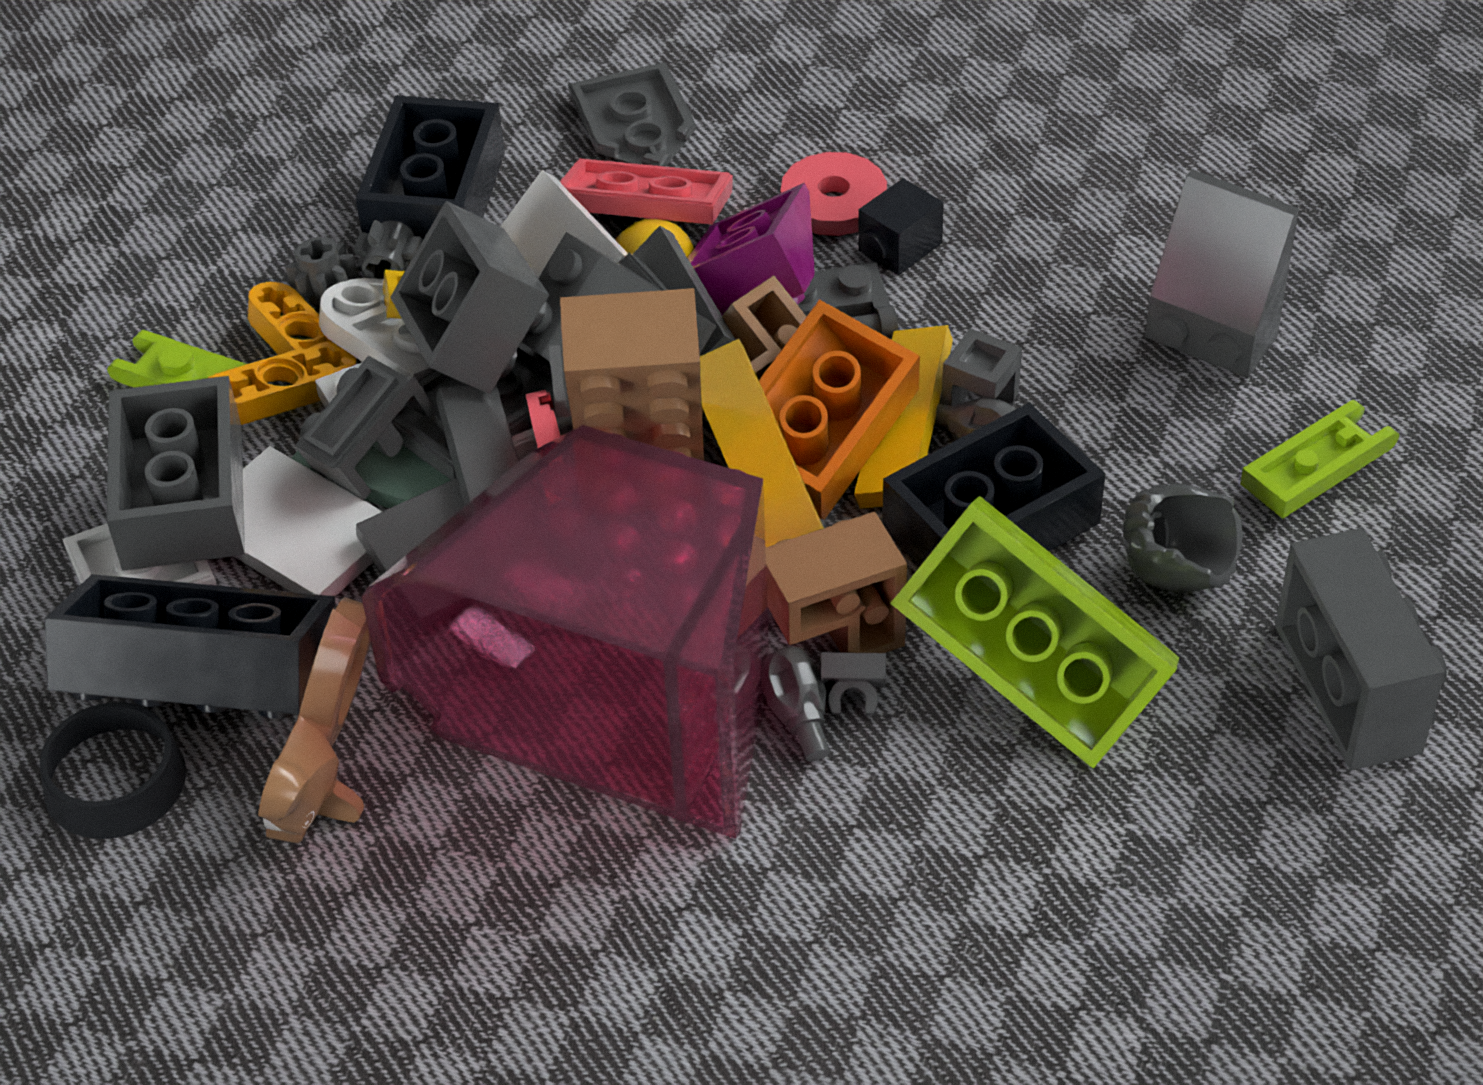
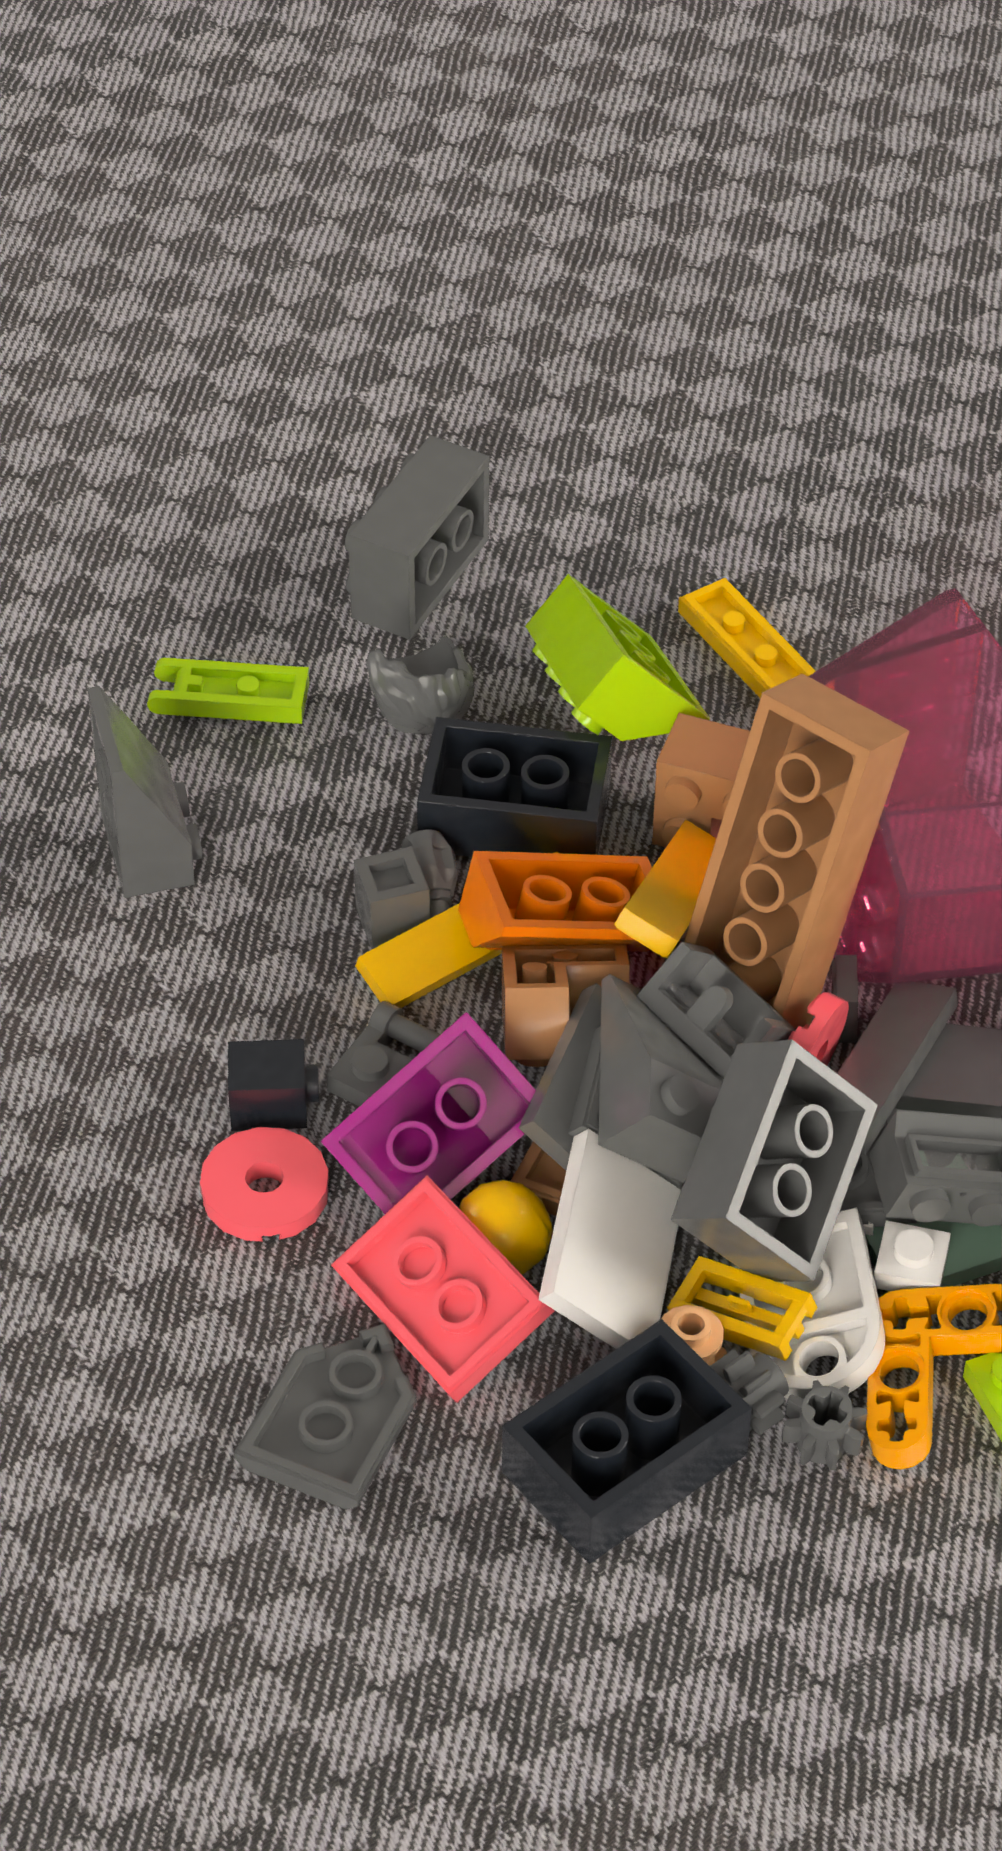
camera: 140 degrees left, 0 degrees up
(972, 814) = (742, 636): none -> yellow tile

